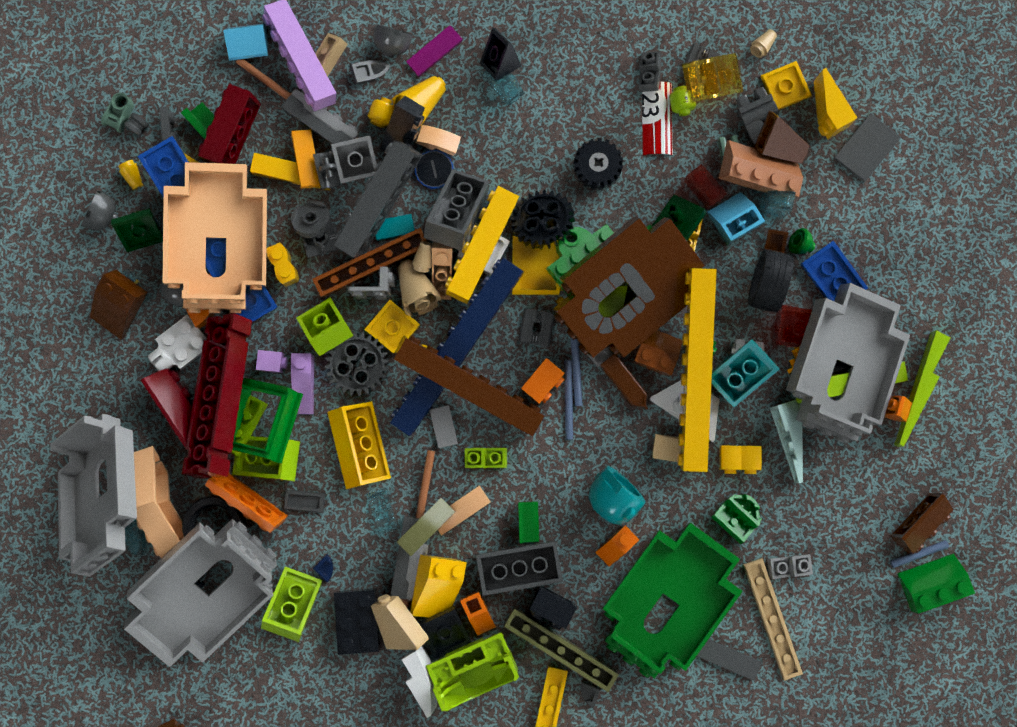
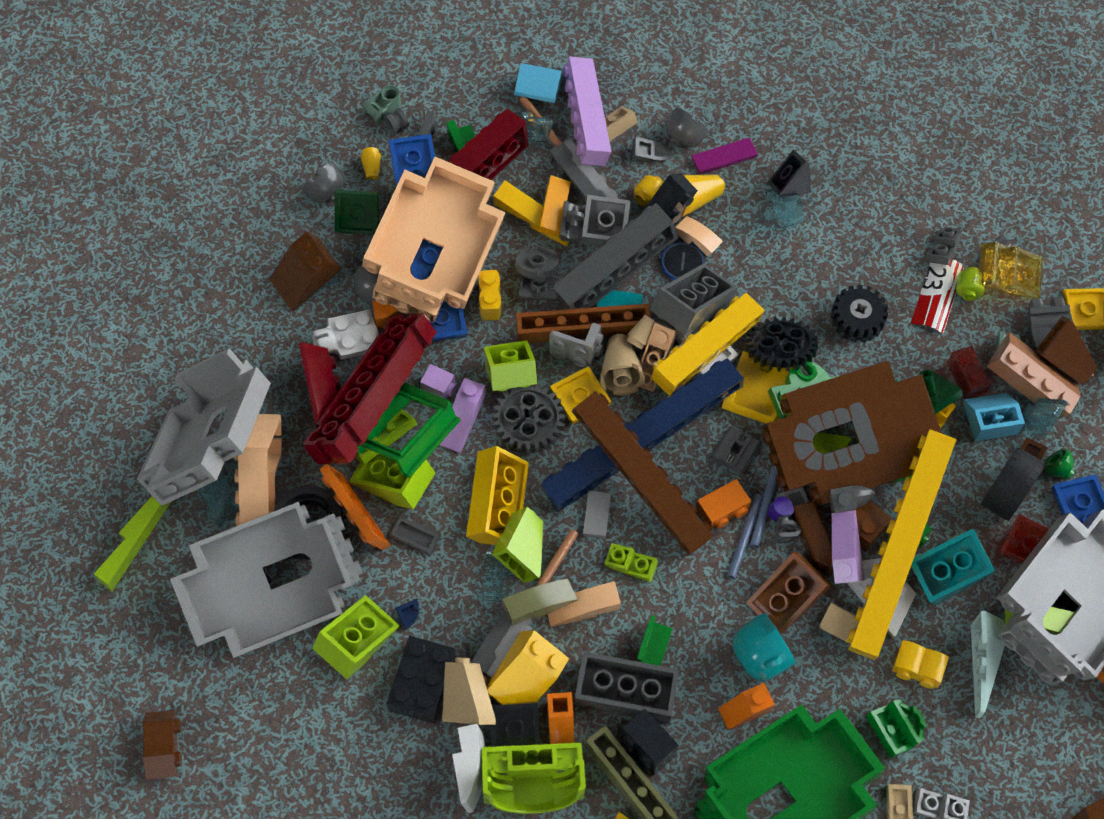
camera: 20 degrees right, 20 degrees down
(78, 590) = (133, 537): none -> lime slope
(257, 85) = (537, 128): none -> clear light blue leg
(393, 479) = (521, 545): none -> lime slope
(592, 369) = (780, 511): none -> leg
(620, 437) = (789, 592): none -> dark orange slope
(643, 344) = (849, 497): none -> dark grey plate
(654, 388) = (846, 548): none -> lavender slope
(763, 43) = (1075, 260): tan cone -> none

